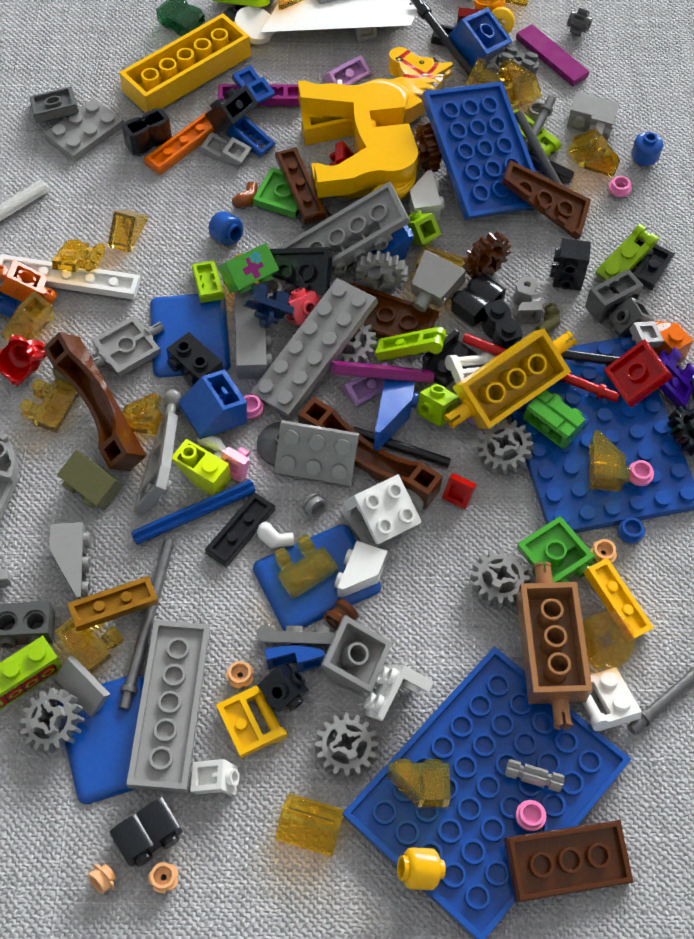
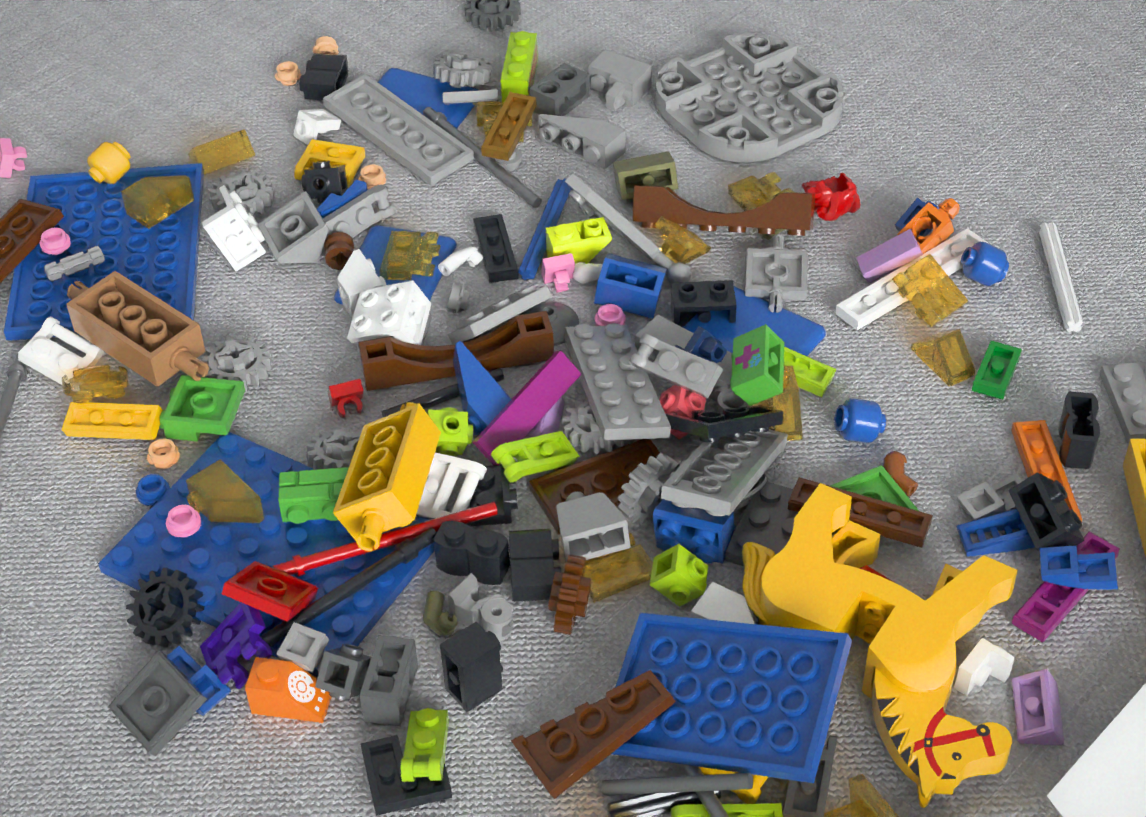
camera: 135 degrees right, 15 degrees down
(27, 242) = (984, 263): none -> blue head
(29, 318) = (875, 222): clear yellow slope -> none
(63, 289) = (889, 256): none -> lavender slope
(120, 196) = (996, 370): none -> green plate
(289, 302) = (676, 366): none -> light grey plate

